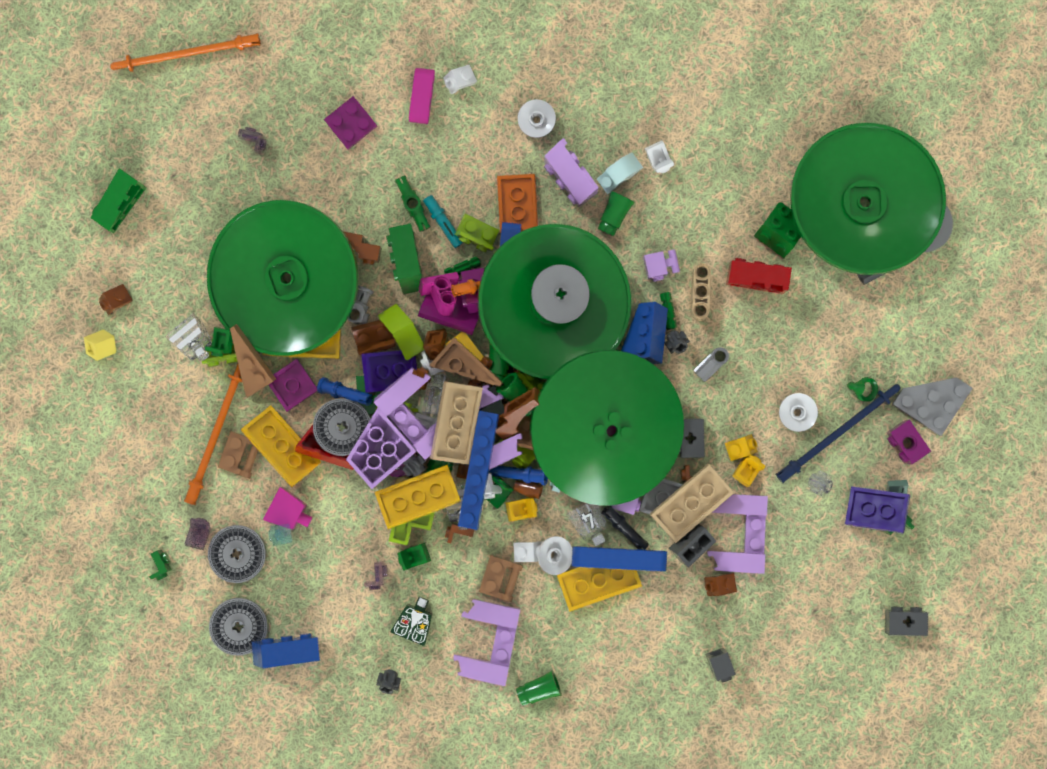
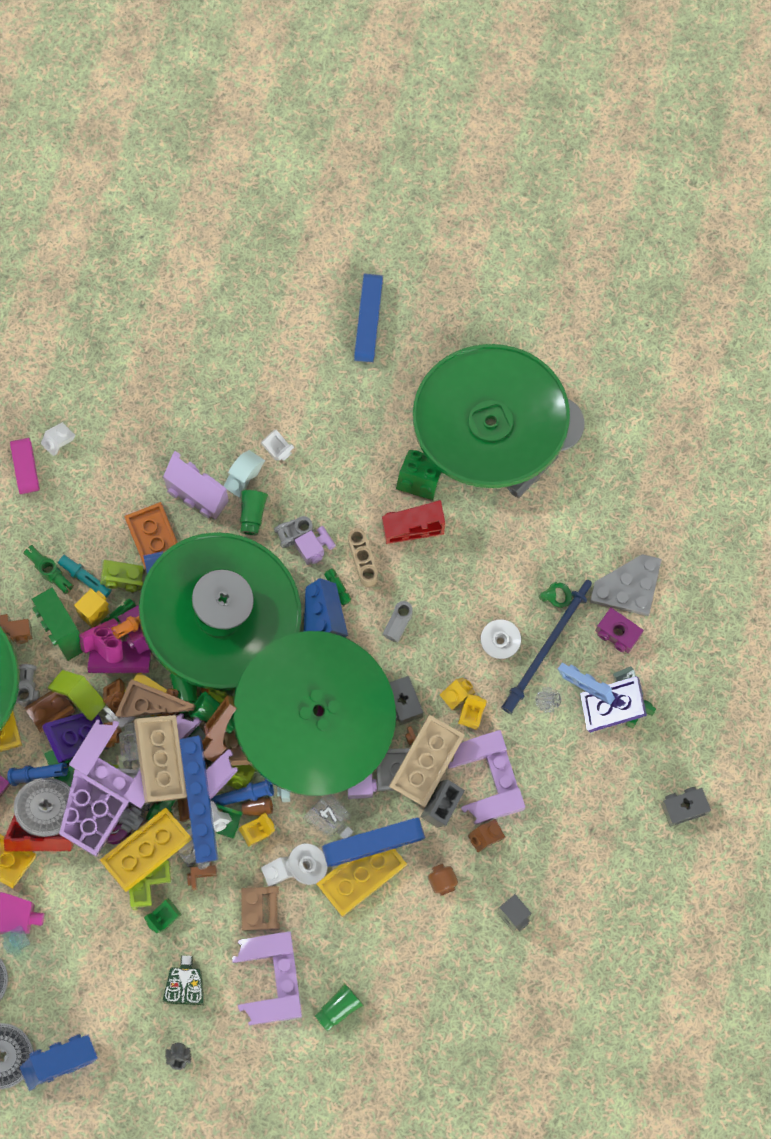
camera: 25 degrees left, 15 degrees down
(381, 572) = (133, 944): bracket -> none
(441, 256) = (92, 608): none -> yellow brick
(539, 109) = (140, 442): white dish -> none
(619, 522) = (361, 807): black pin -> none
(645, 244) = (292, 530): none -> light grey piece
(668, 611) = (442, 879): none -> dark orange head
(677, 342) = (356, 612): dark grey gear -> none
(787, 59) = (368, 318): none -> blue beam
(861, 482) = (586, 683): none -> light blue plate

